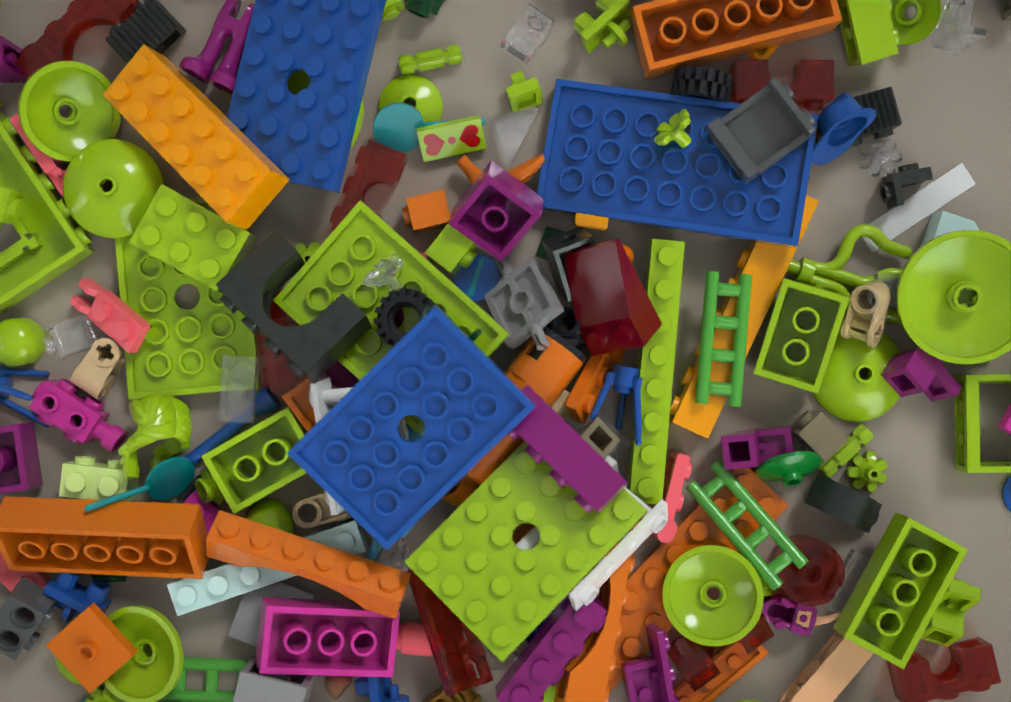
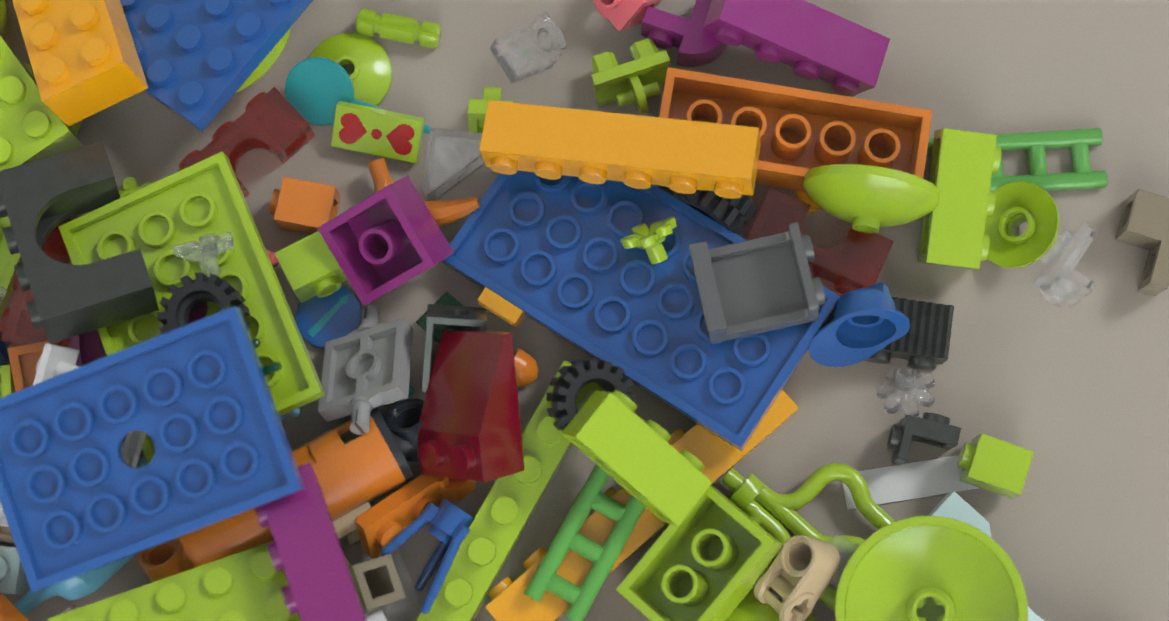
camera: 25 degrees right, 10 degrees down
(631, 77) = (621, 148): none -> light orange brick
(702, 258) = (574, 378): none -> black tyre
(735, 281) = (638, 456): none -> lime brick
(810, 36) = (870, 195): none -> lime dish
(961, 181) = (995, 465): none -> lime brick

